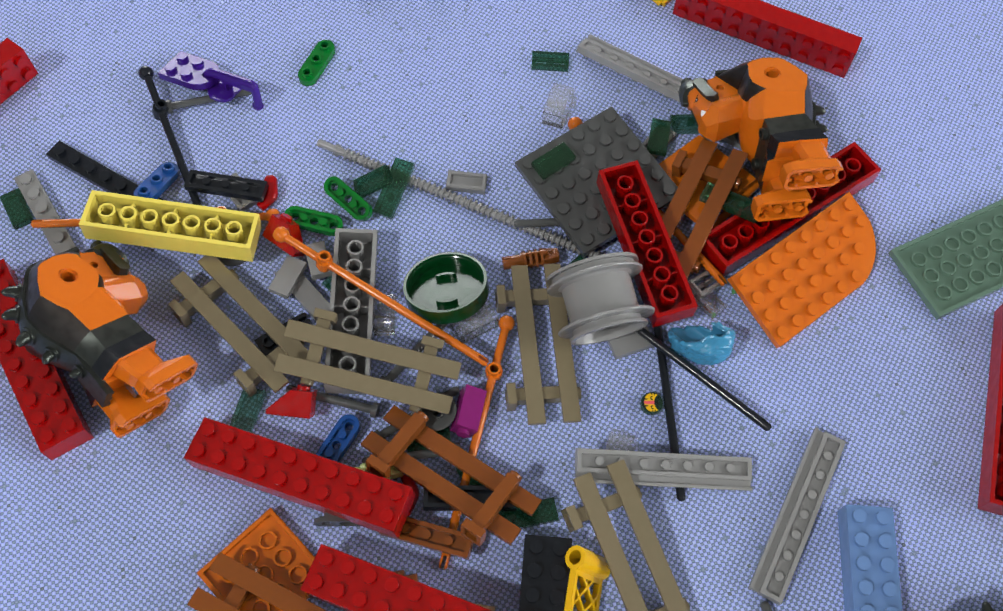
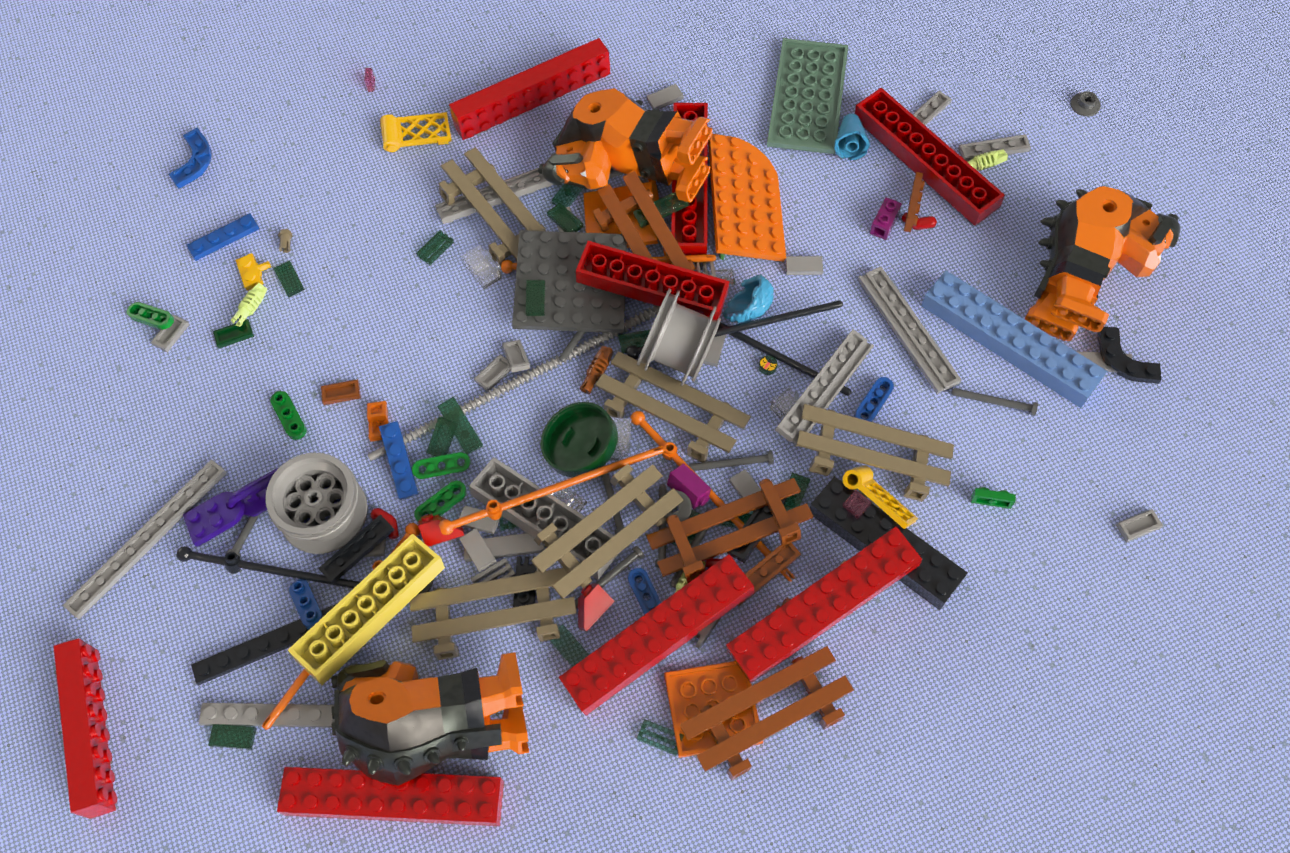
camera: 50 degrees left, 0 degrees up
(145, 41) = (144, 540): none -> light grey plate
(198, 542) = (654, 744): none -> tile
(240, 127) = (303, 482): none -> light grey wheel
(262, 294) = (493, 568): none -> light grey tile
(329, 163) = (398, 460): none -> blue plate
(359, 126) = (377, 416): none -> orange slope
(364, 84) = (340, 392): none -> dark orange tile
(493, 187) = (516, 356): none -> light grey tile
(509, 459) = (744, 484): none -> light grey tile
(552, 465) = (734, 462): none -> dark grey bar
(554, 579) = (857, 504): none -> clear pink tile
(622, 39) = (466, 185): none -> dark tan fence
(698, 524) = (875, 394): none -> blue plate
(787, 369) = (804, 265): none -> light grey tile
(860, 135) = (665, 97): none -> light grey tile
(905, 412) = (885, 218): none -> magenta brick
(930, 450) = (923, 222): none -> red arm
(941, 429) = (914, 206): none -> dark orange plate
(966, 322) = (851, 138): none -> dark azure cone

